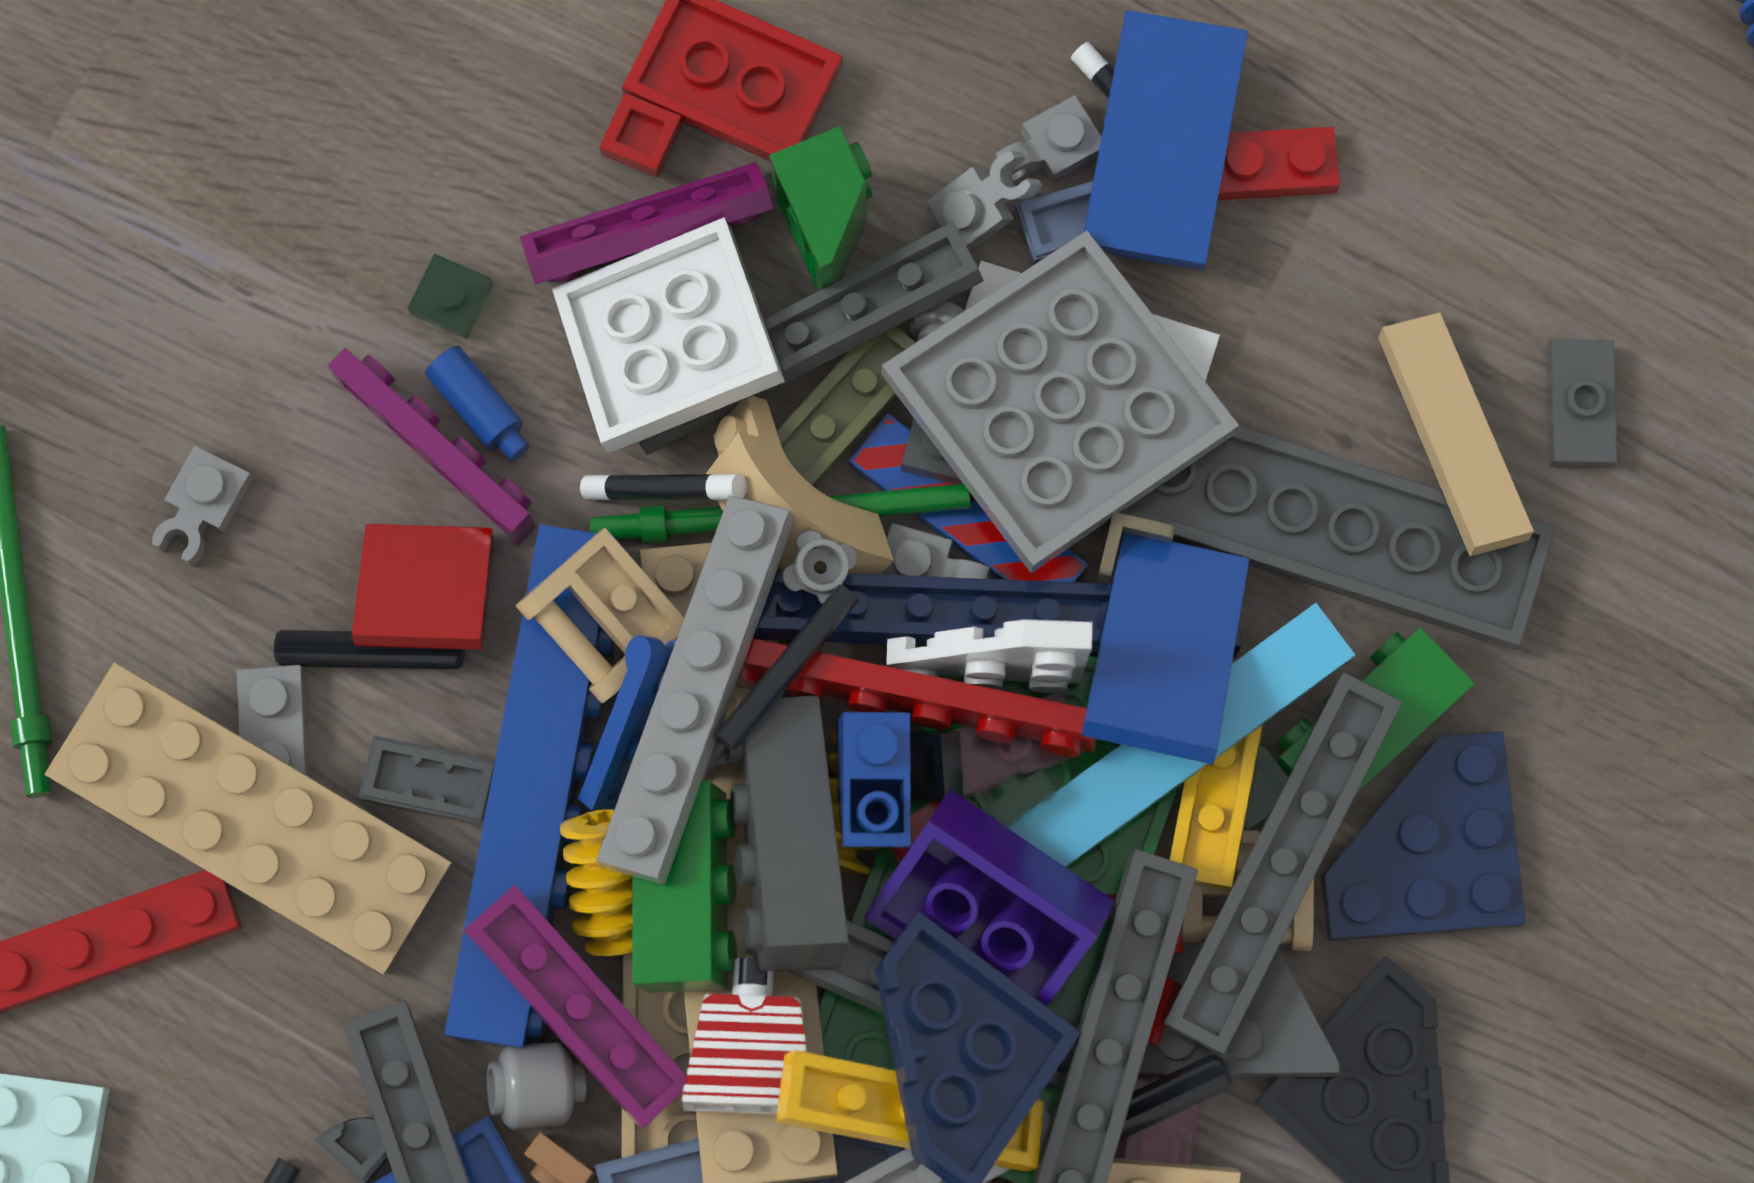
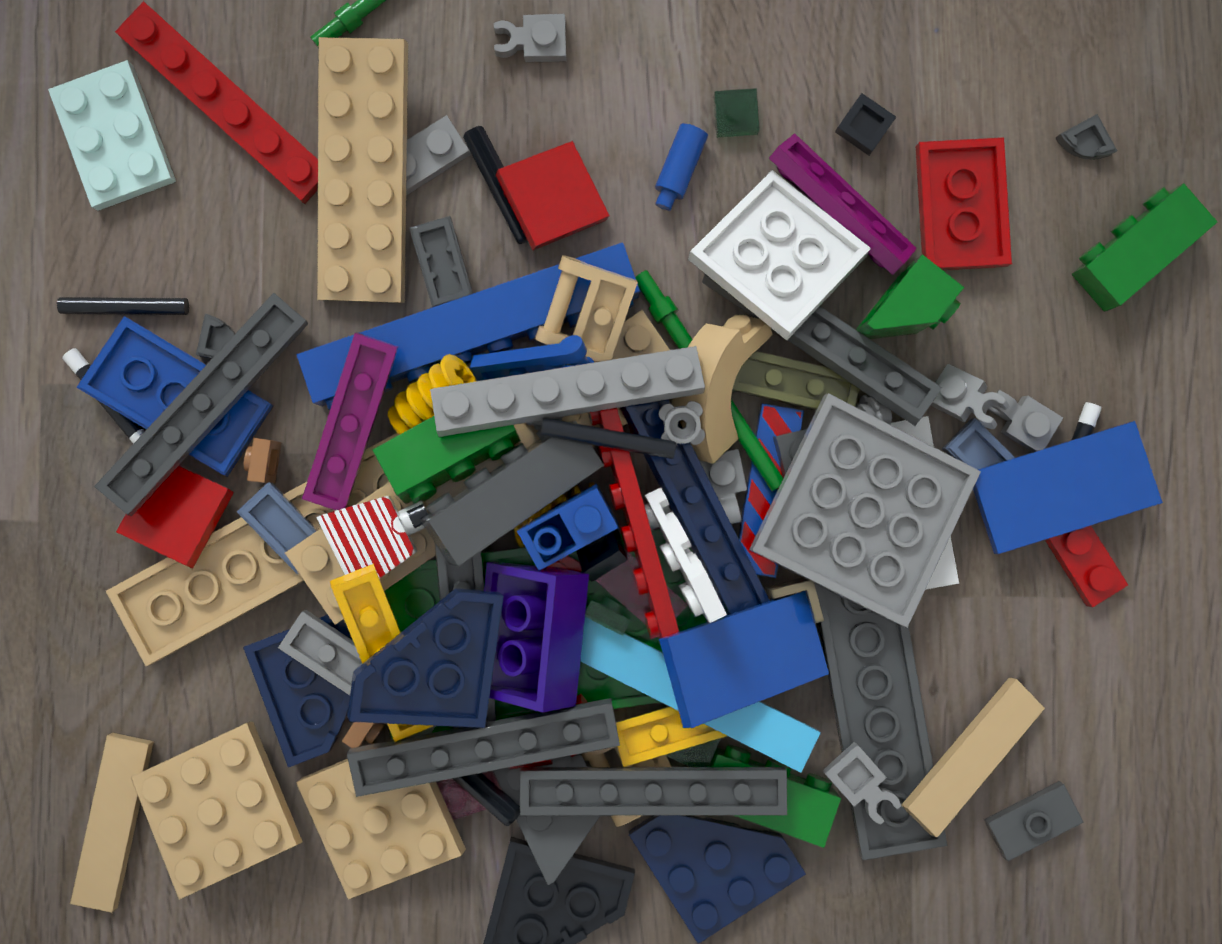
camera: 60 degrees right, 10 degrees up
(416, 427) = (645, 136): magenta plate -> none
(535, 1085) = (297, 421): light grey head -> none
(560, 142) = (865, 124): none -> black plate
(641, 135) = (896, 170): red plate -> none
(663, 487) = (685, 303): black bar -> none
(1405, 593) = (859, 779): none -> light grey plate

